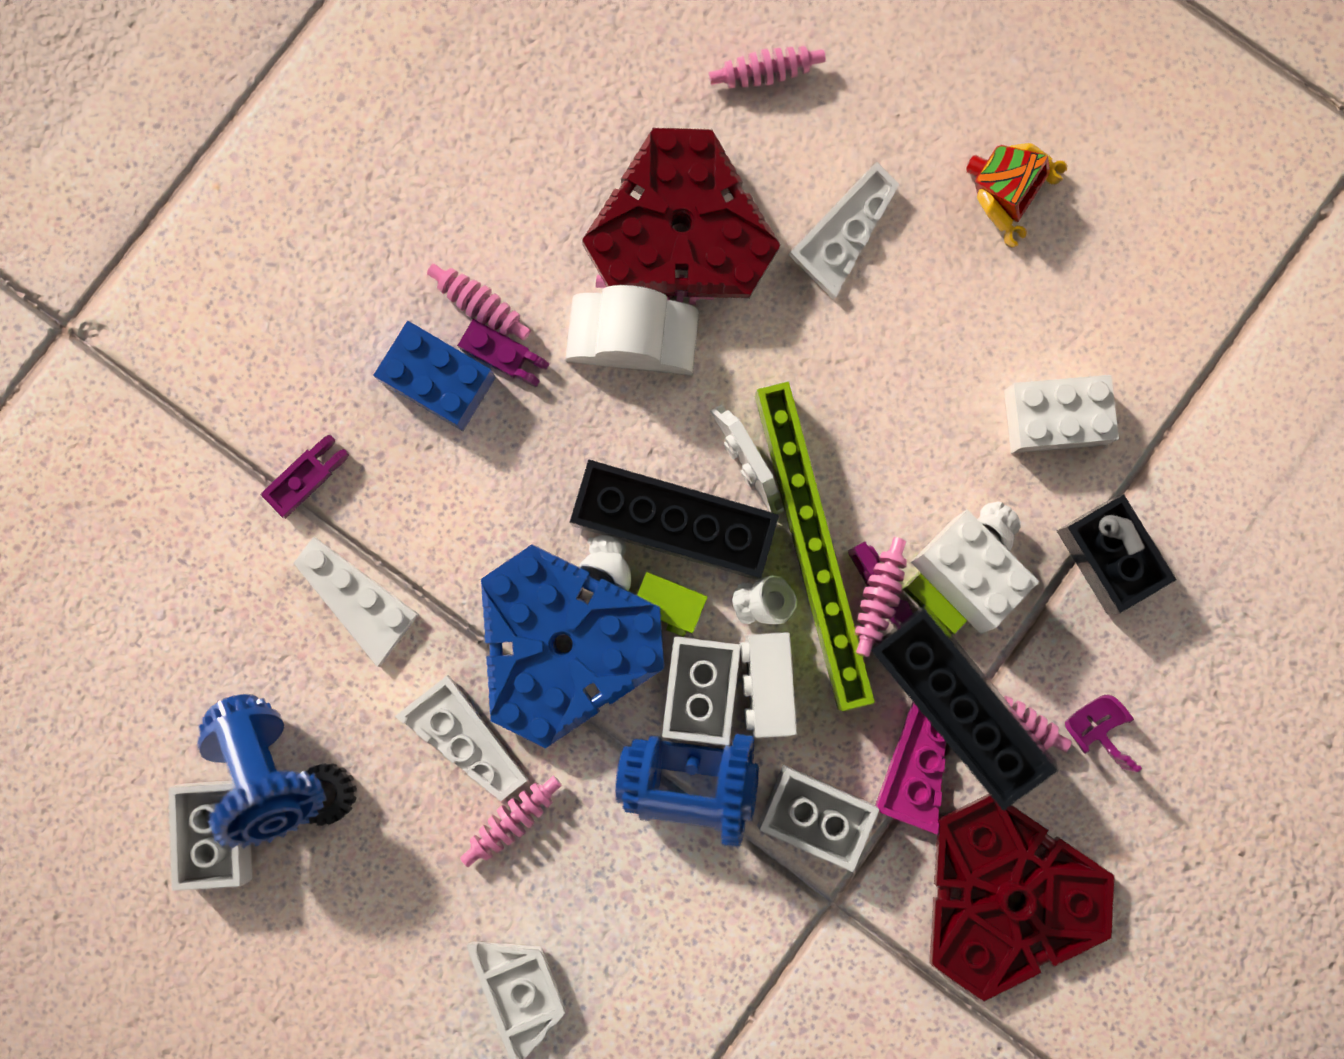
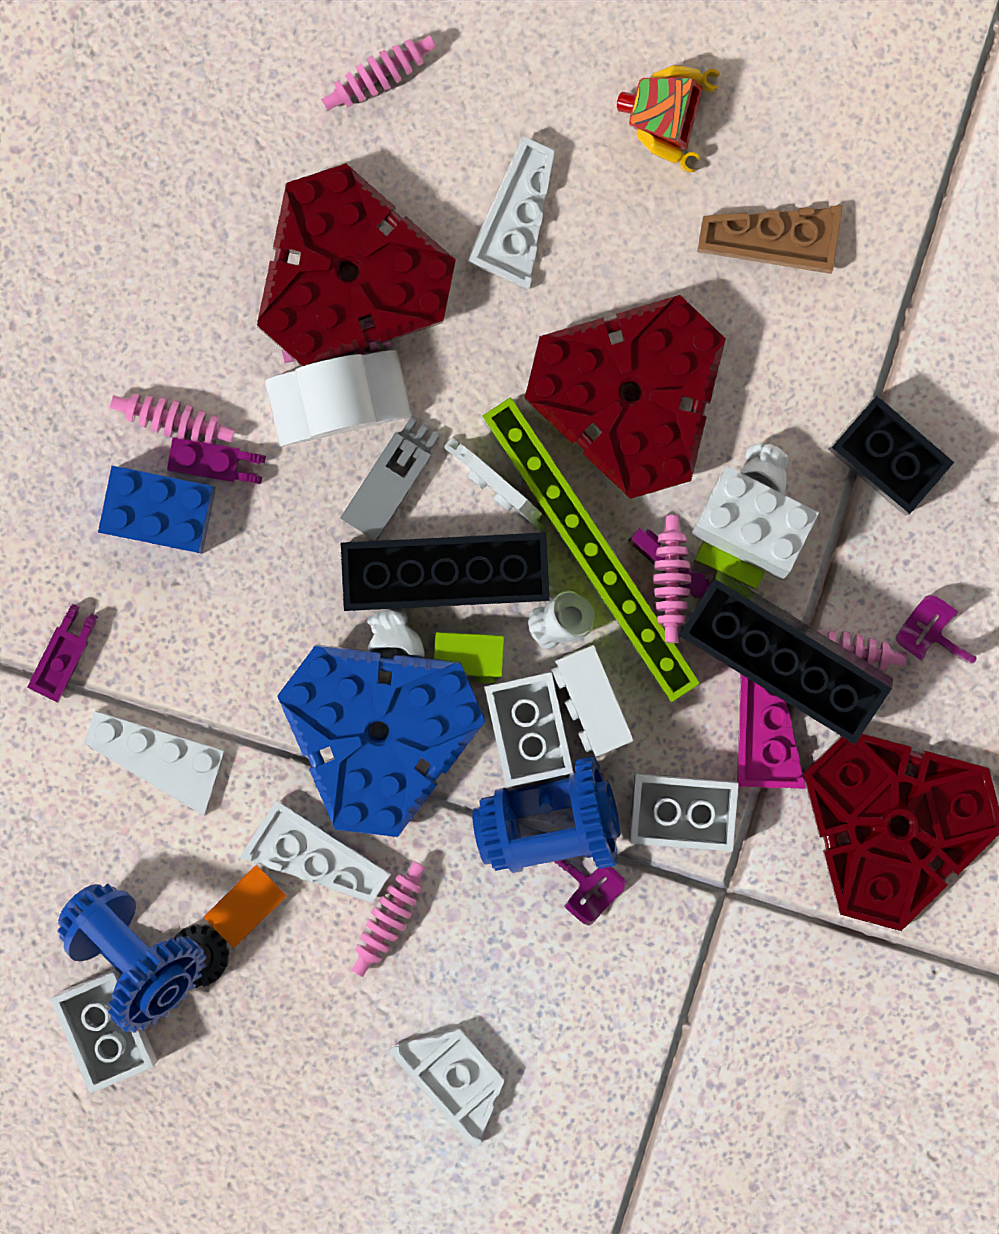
camera: 20 degrees left, 5 degrees up
(383, 763) = (245, 906): none -> orange piece
(645, 429) = (383, 488): none -> light grey hinge
(704, 876) = (594, 906): none -> magenta helmet
(938, 393) = (664, 352): none -> dark red plate
(1061, 414) = (793, 331): white brick -> none
(1084, 333) = (787, 238): none -> medium nougat wing
(1121, 529) = (884, 432): light grey arm -> none

